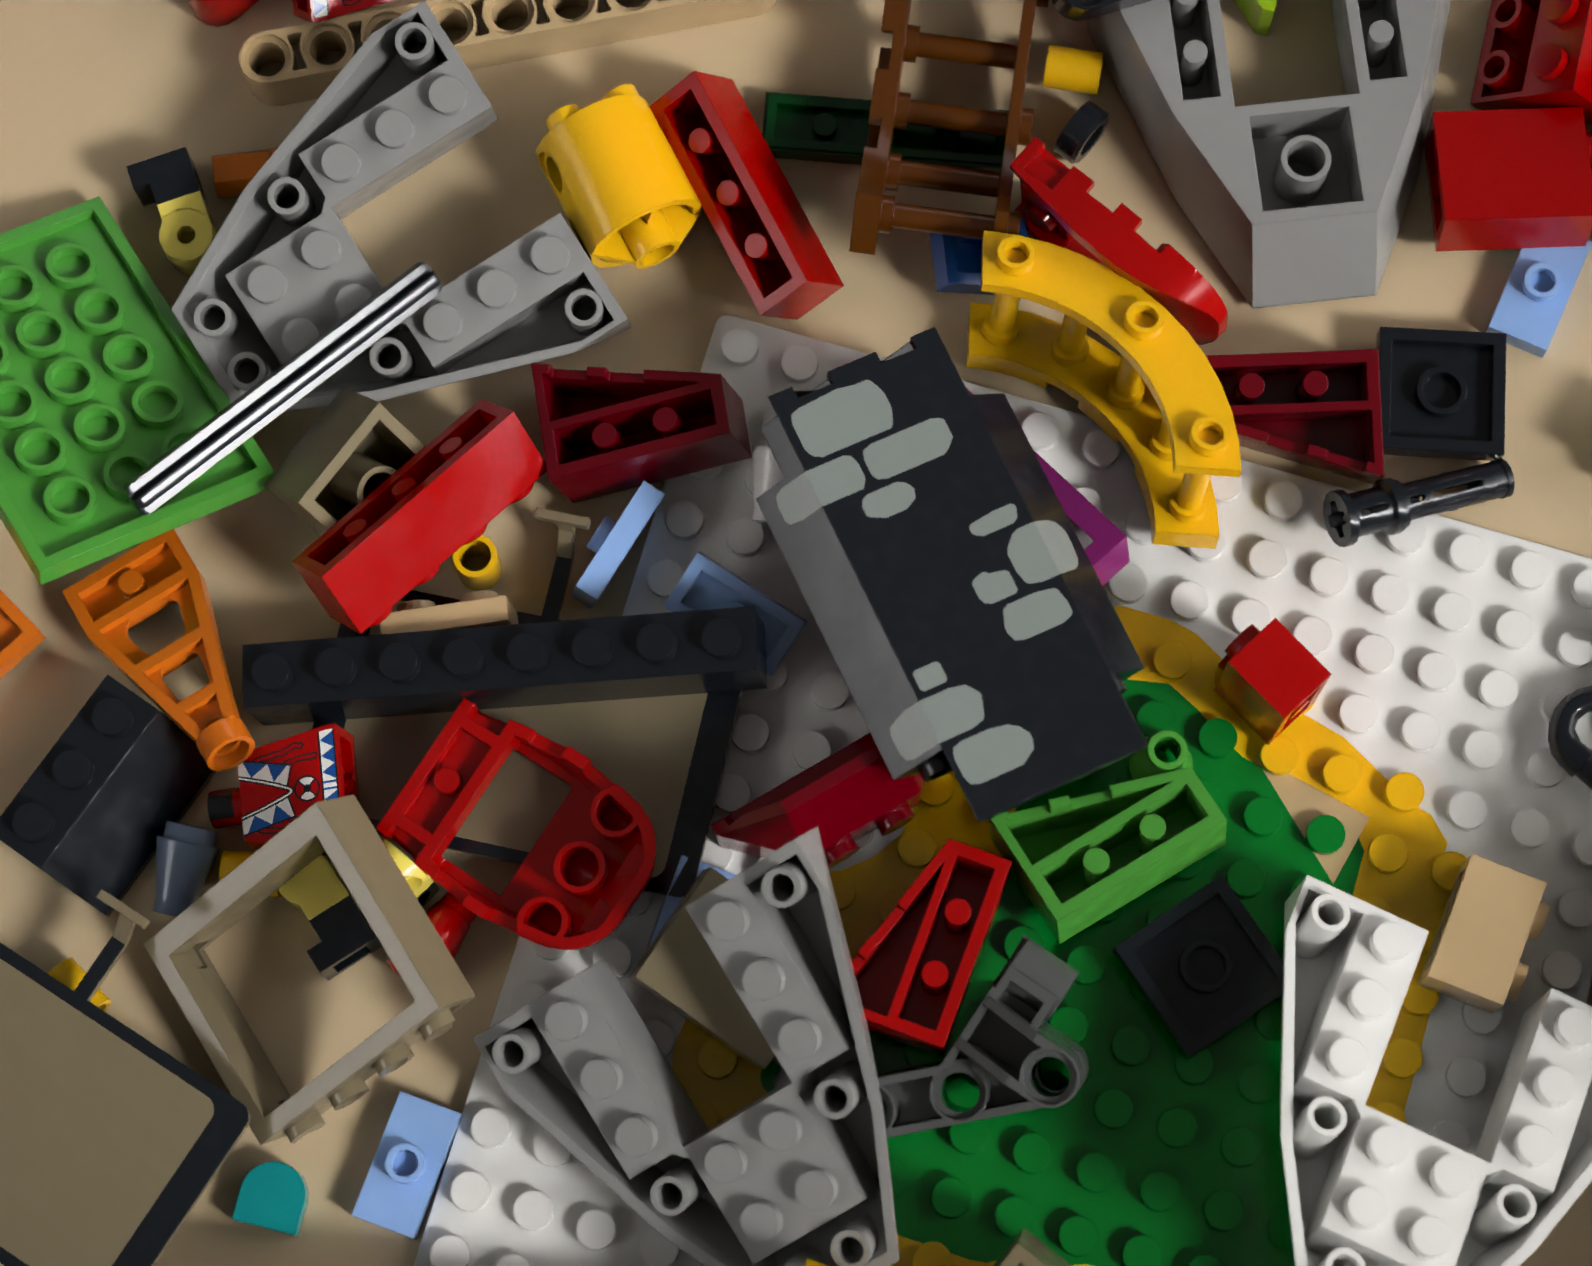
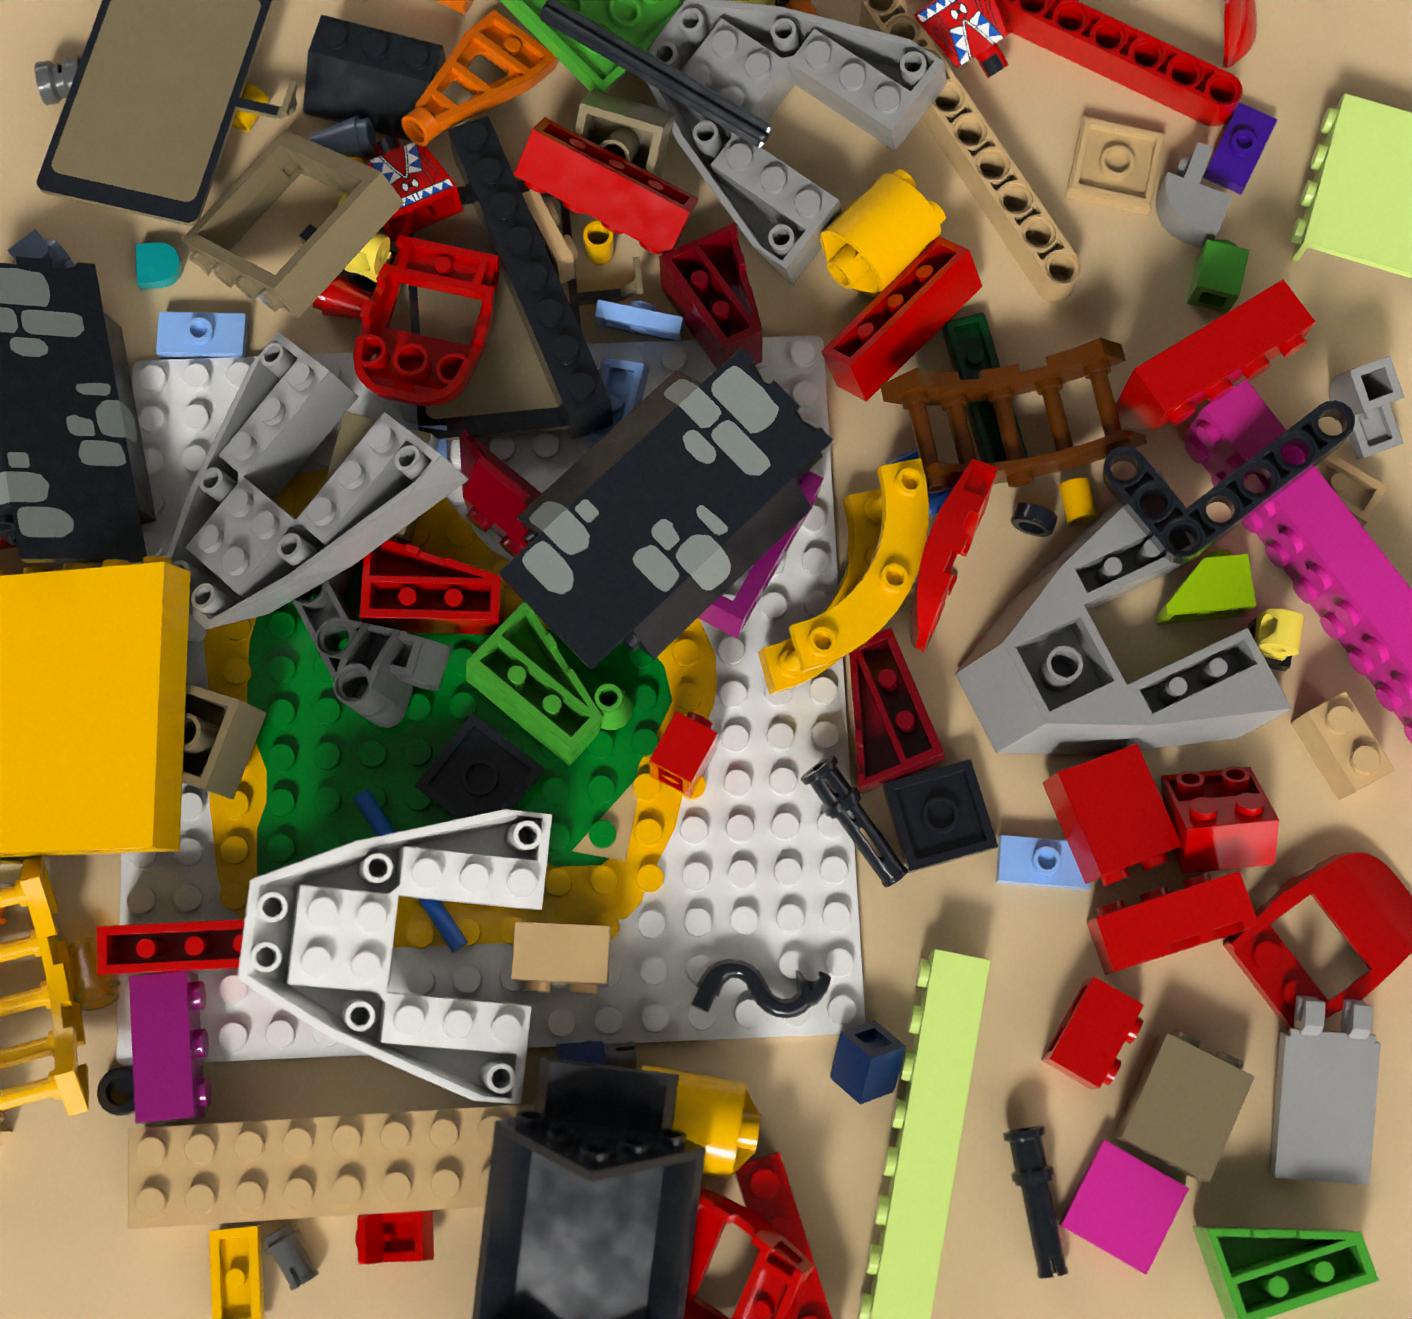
camera: 65 degrees right, 0 degrees up
(1267, 1111) = (434, 908): none -> blue bar

